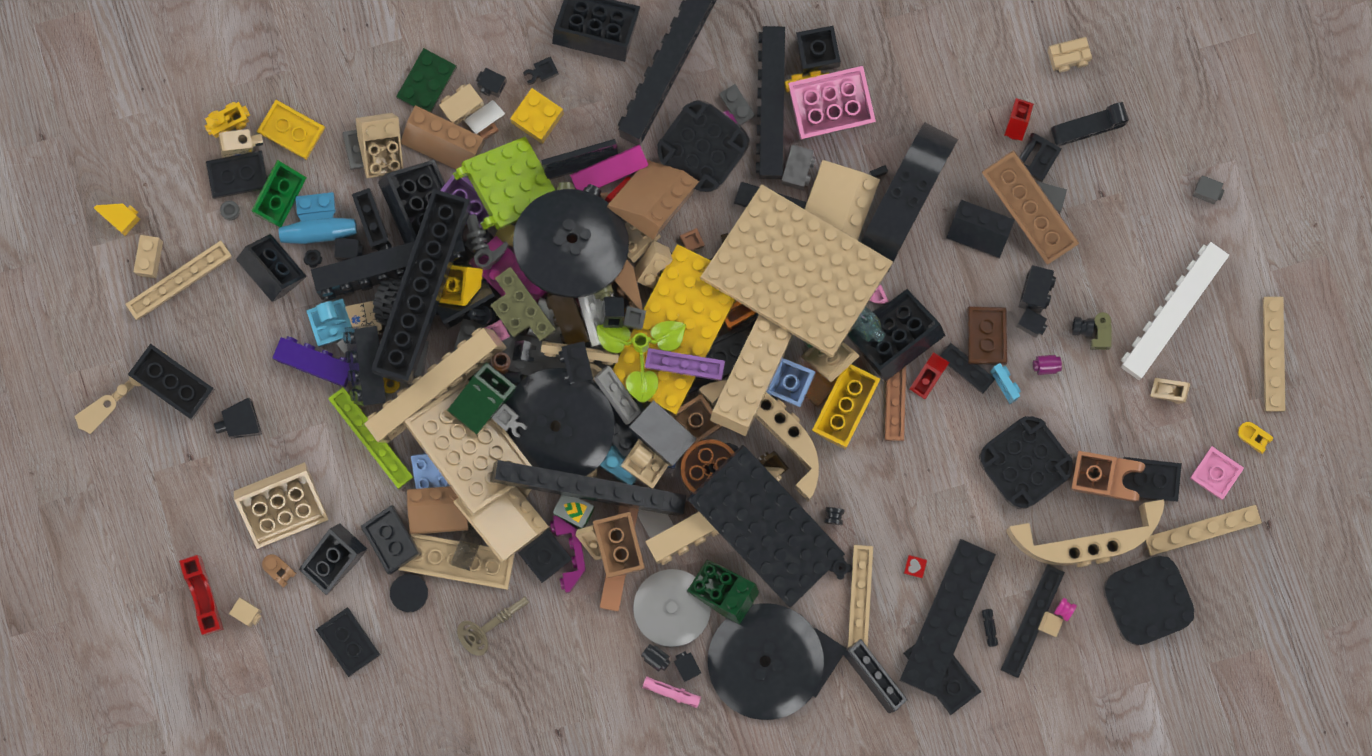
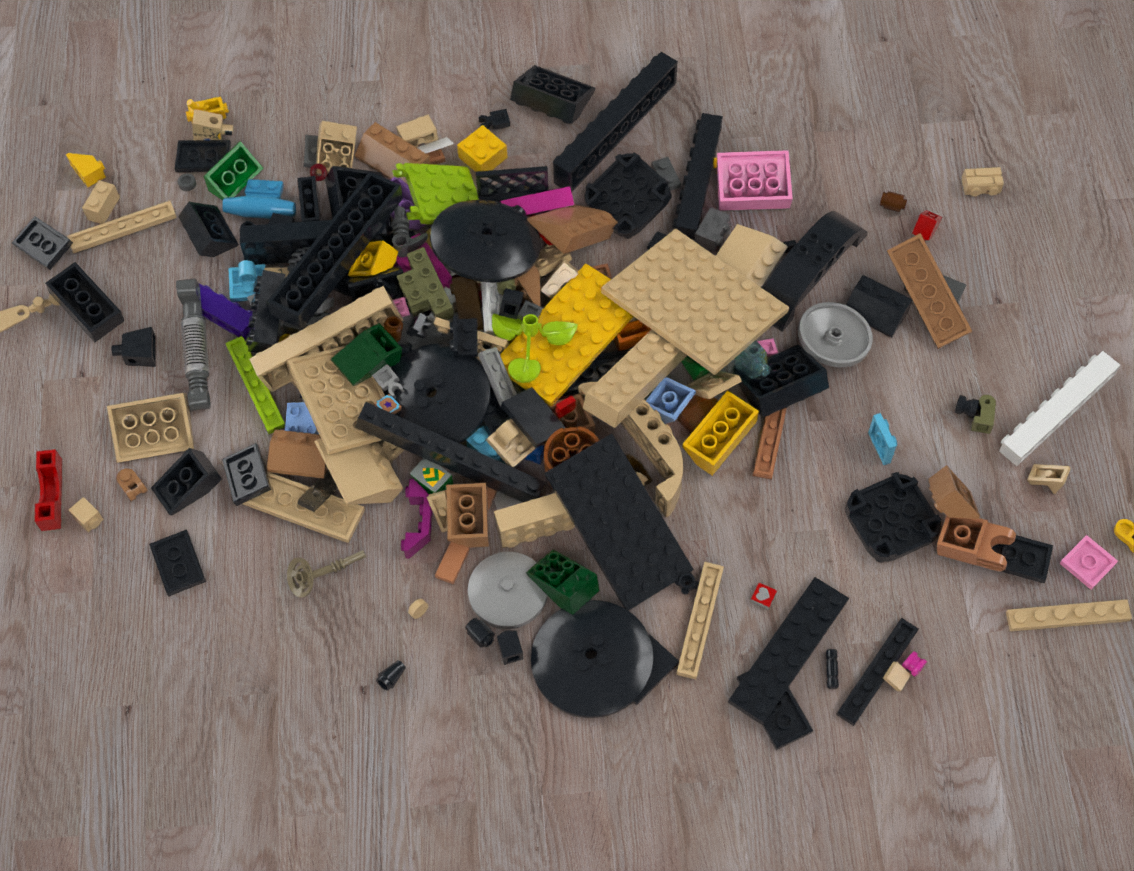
camera: 10 degrees right, 20 degrees down
(101, 316) = (42, 243): none -> black tile
(291, 129) = (261, 130): yellow tile -> none
(299, 409) = (195, 344): none -> dark grey piece
(370, 183) = (313, 171): none -> dark red plate
(409, 593) = (250, 528): black tile -> none
(426, 81) = (392, 110): dark green plate -> none
(491, 82) = (448, 120): black brick -> none
(515, 449) = (389, 404): none -> tile
(545, 556) = (393, 517): black plate -> none
(582, 715) = (389, 677): none -> black cone
(591, 645) = (418, 608): none -> tan tile
(671, 692) = (484, 667): bright pink pin -> none
(684, 364) = (569, 358): medium lavender plate -> none
(690, 415) = (565, 406): none -> red tile
(818, 49) = (749, 135): black brick -> none
(834, 516) = (689, 532): black wheel -> none
(874, 676) = (702, 692): black slope -> none
(929, 375) = (807, 422): red slope -> none
(942, 272) = (835, 334): none -> light grey dish
(970, 372) = (845, 425): black tile -> none
(980, 97) = (893, 201): none -> reddish brown brick
(987, 335) = (869, 396): reddish brown tile -> none
(1032, 323) = (916, 394): black brick -> none
(1036, 289) = (926, 362): black brick -> none
(1044, 158) = (948, 258): black plate -> none
(1047, 364) = (926, 433): magenta brick -> none
(1058, 552) = (945, 605): tan slope -> none
(1081, 434) = (952, 495): none -> medium nougat slope
(1090, 125) = (997, 240): black beam -> none
(1149, 600) = (1004, 671): black plate -> none
(1208, 190) = (1104, 310): dark grey brick -> none

